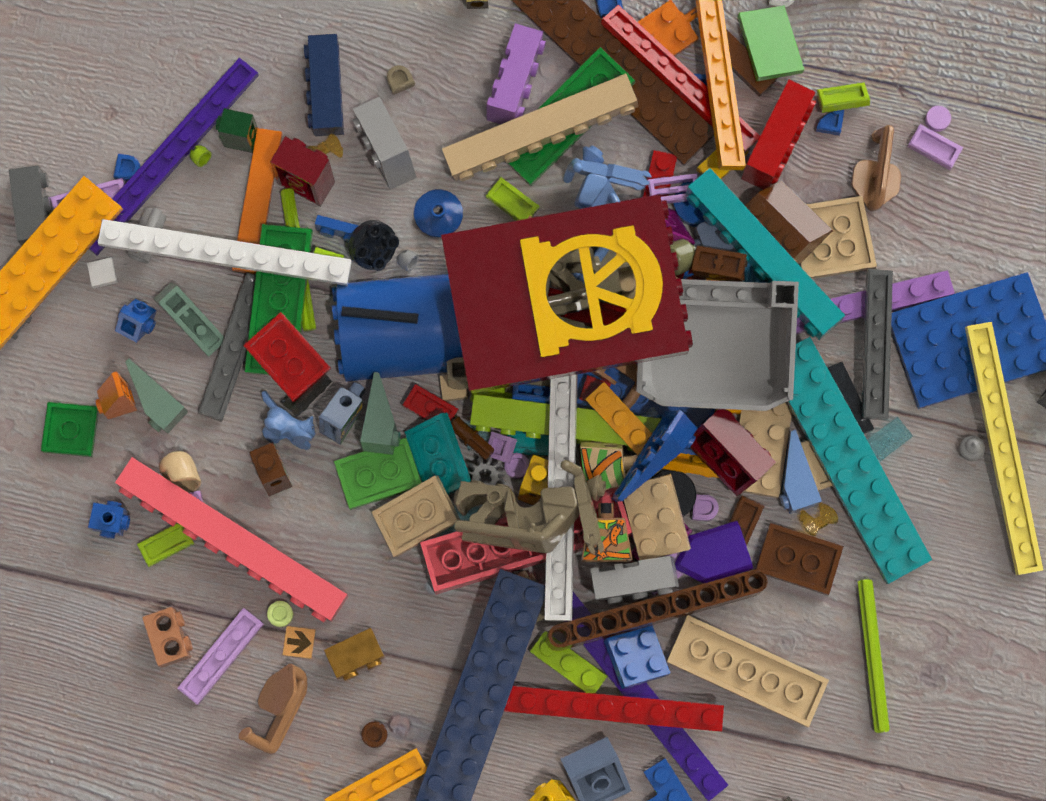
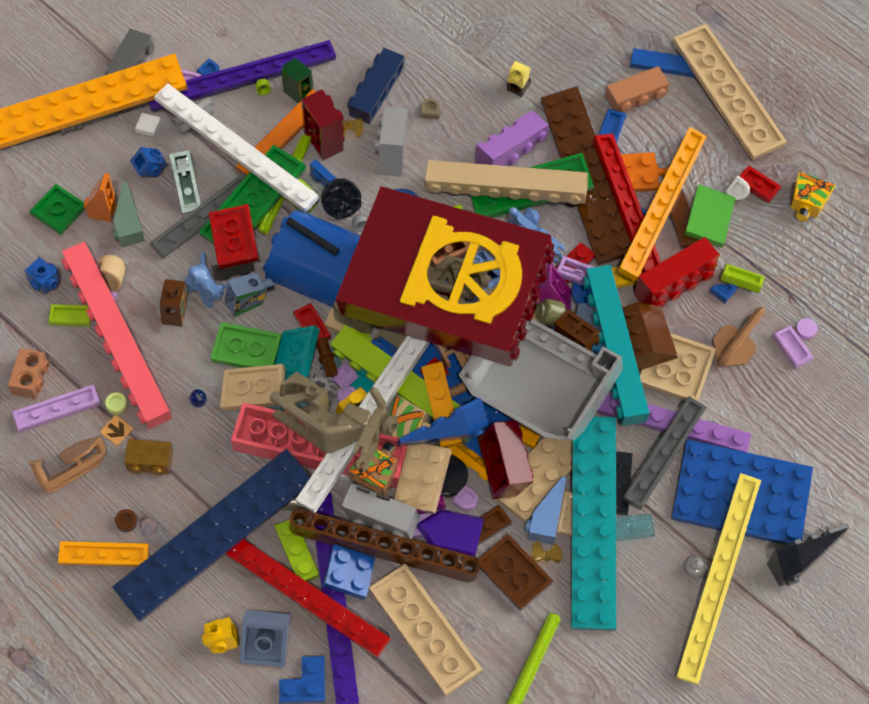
camera: 30 degrees right, 15 degrees down
(360, 563) = (194, 401): none -> clear blue hinge
(379, 427) = (267, 313): sand green slope -> none

